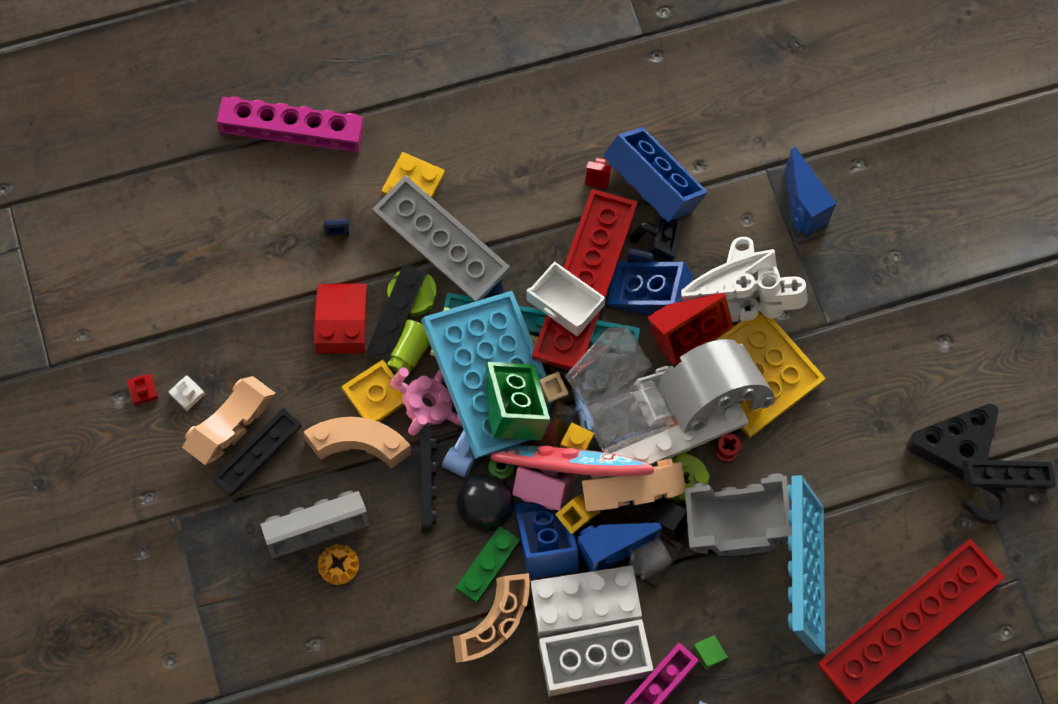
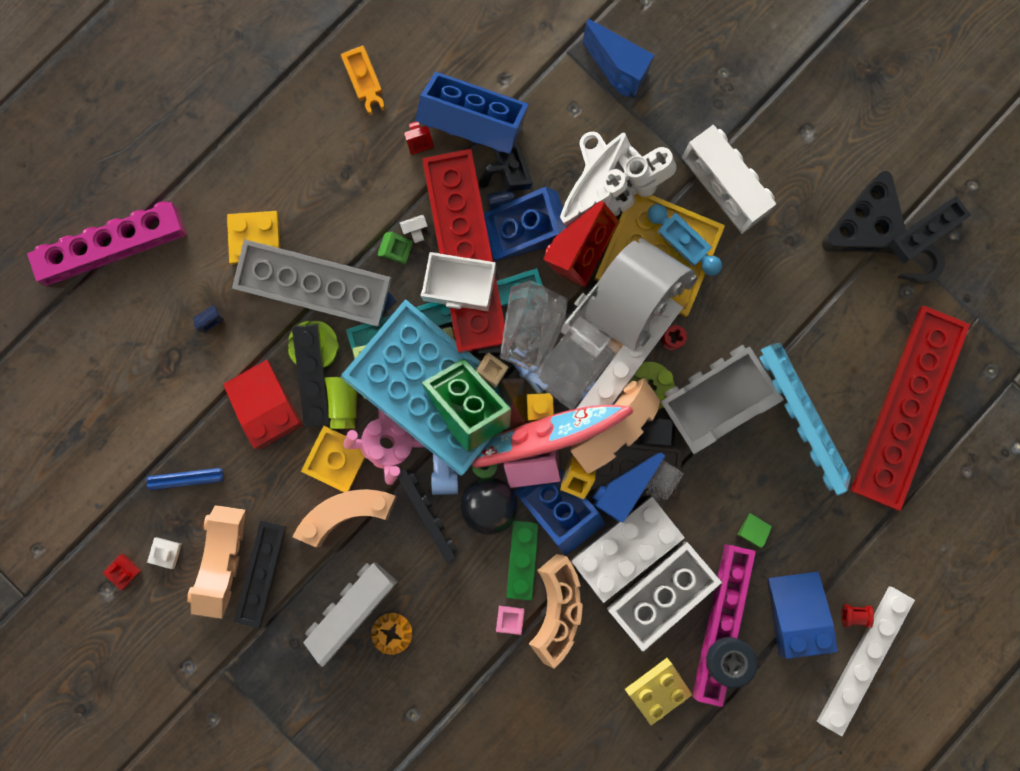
camera: 30 degrees left, 15 degrees up
(240, 342) = (185, 478): none -> blue axle
(447, 609) = (510, 620): none -> bright pink tile
(528, 251) = (395, 247): none -> bright green slope
(553, 241) = (414, 226): none -> white tile
(579, 103) = (363, 77): none -> light orange plate
(782, 369) = (684, 239): none -> dark azure plate
(849, 340) = (728, 178): none -> white brick

